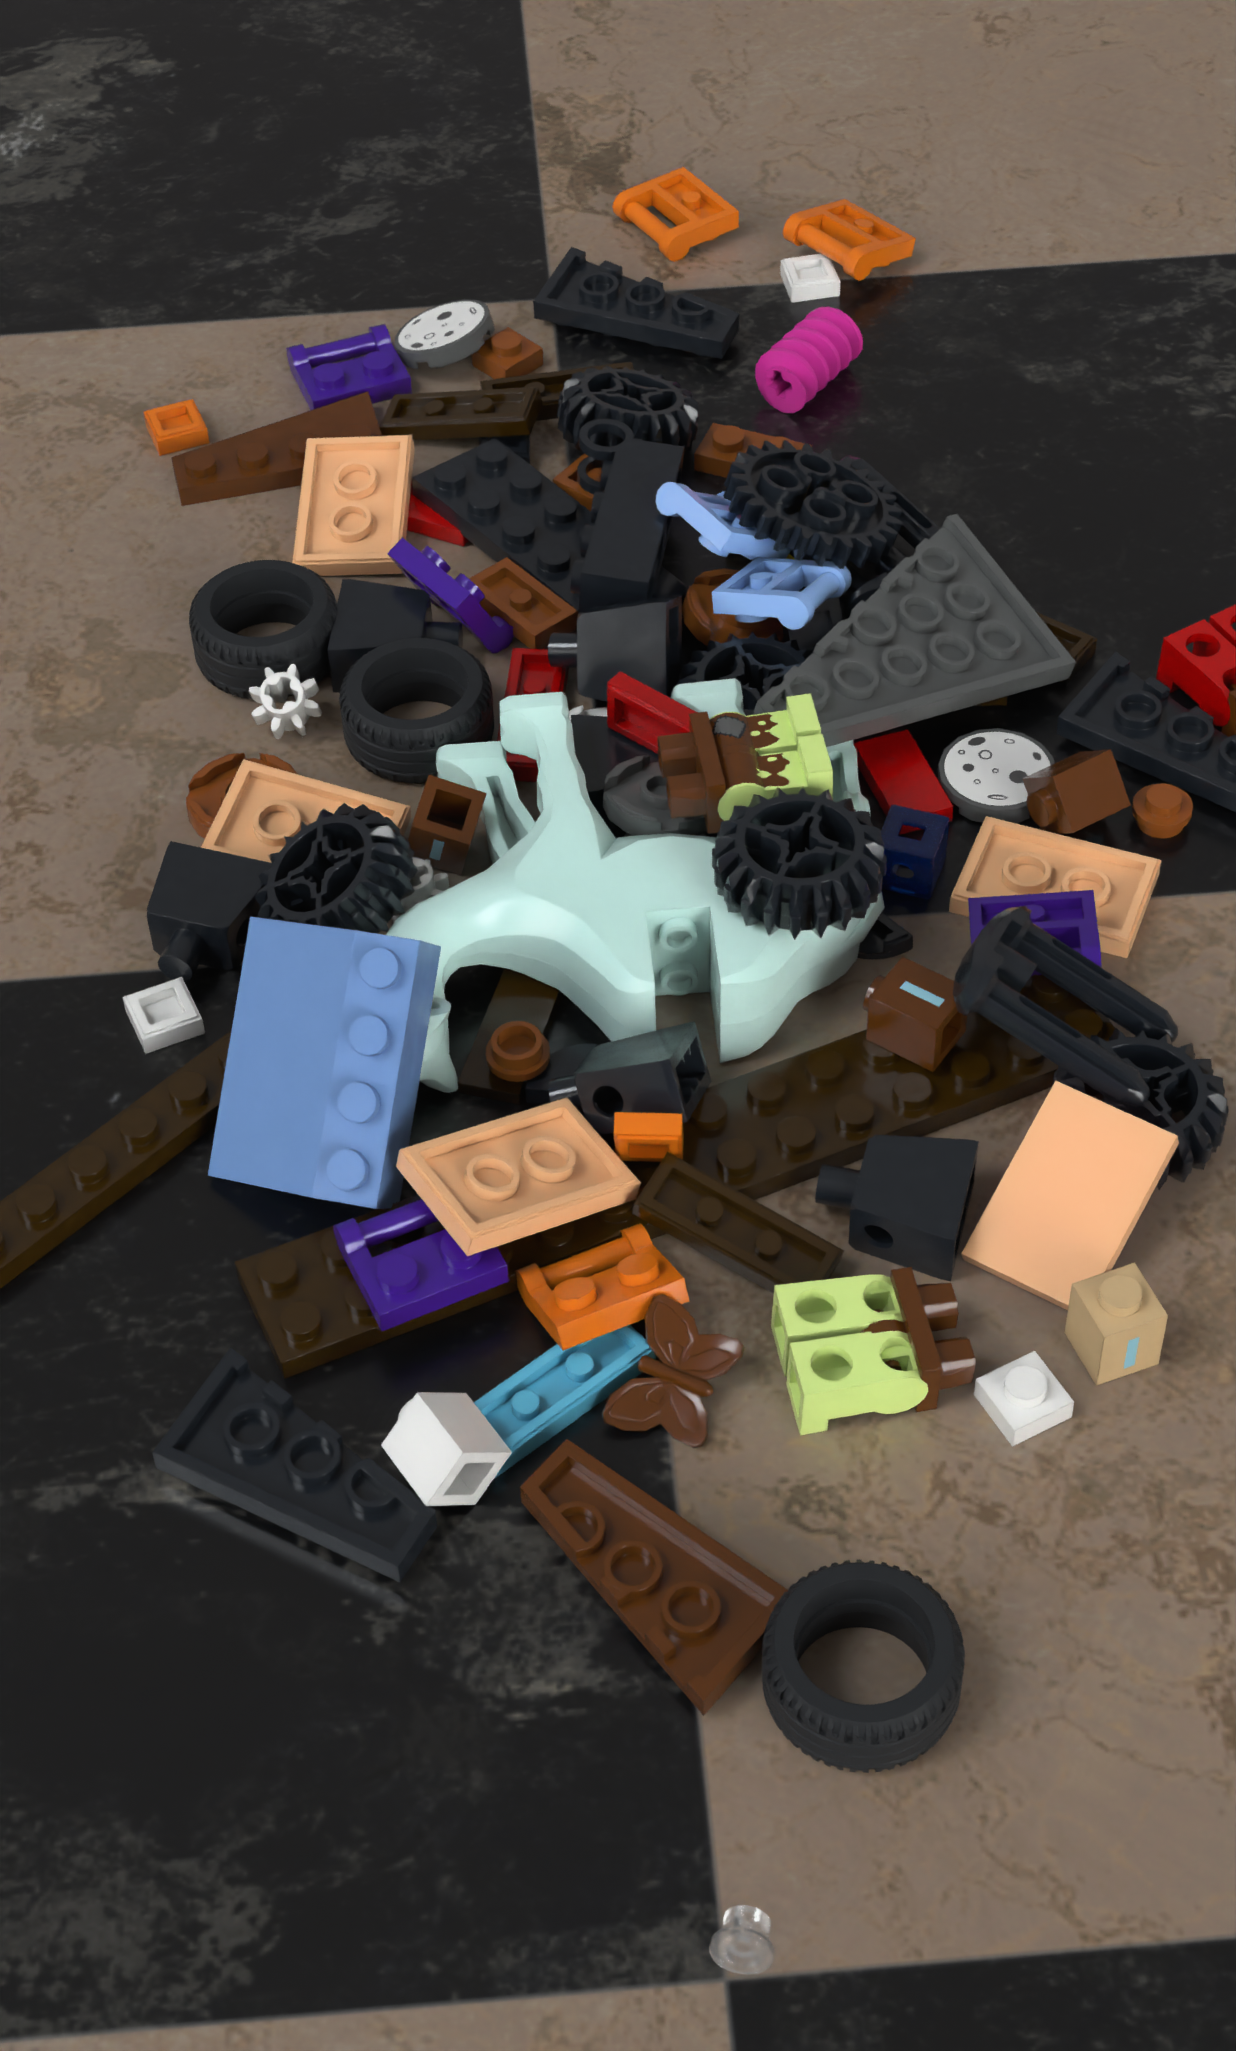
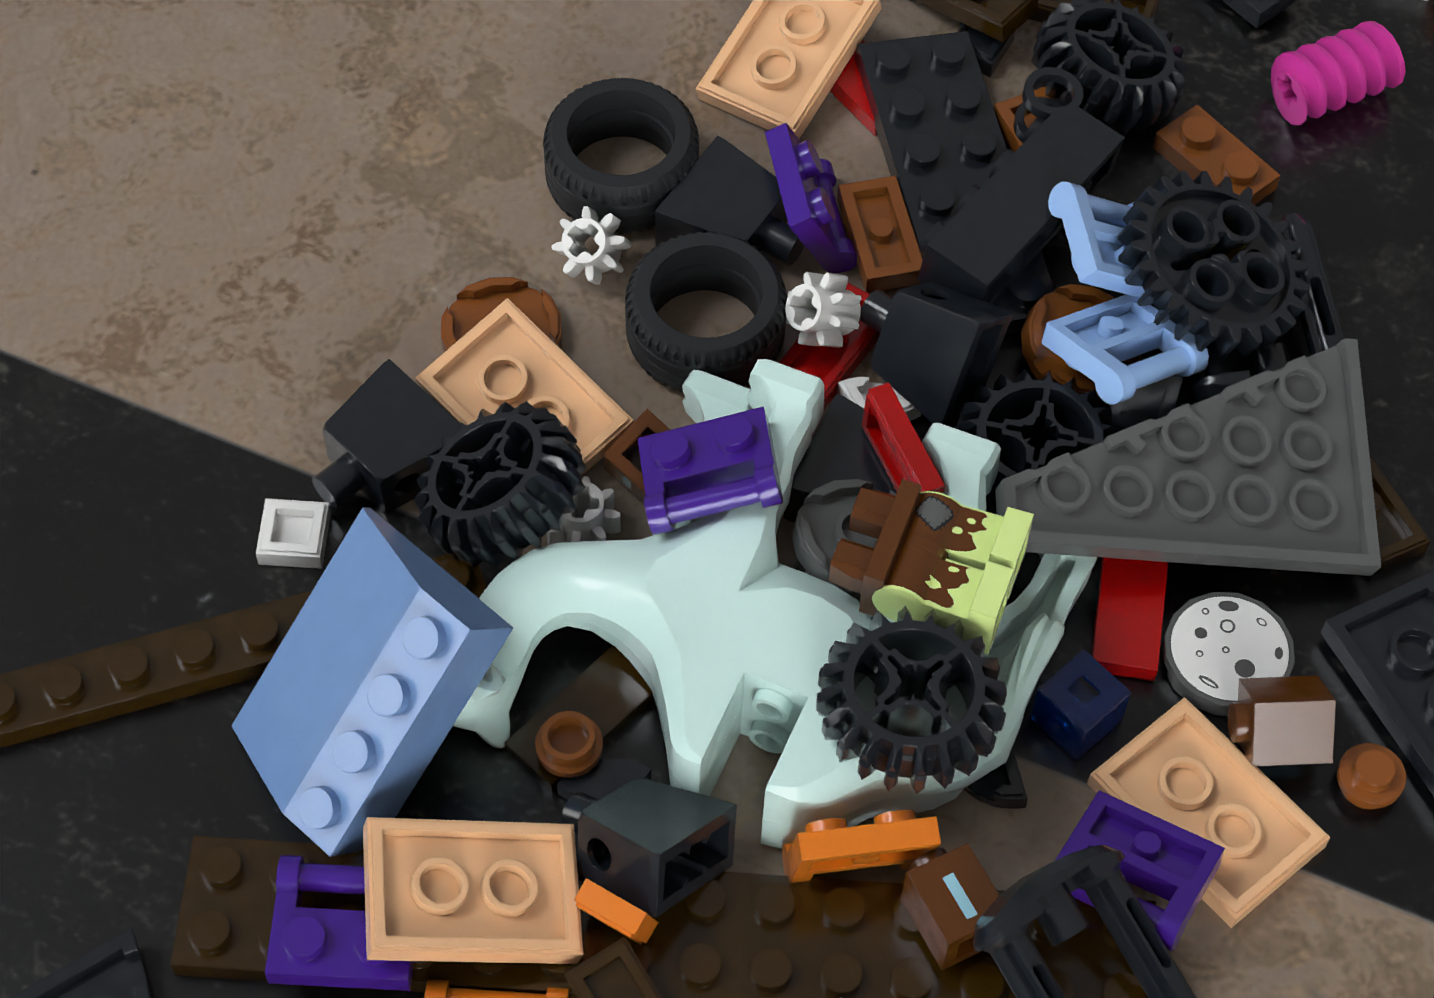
camera: 25 degrees right, 10 degrees up
(503, 658) = (823, 309): none -> white gear
(515, 787) = (709, 469): none -> dark purple plate
(813, 1008) = (834, 847): none -> orange plate

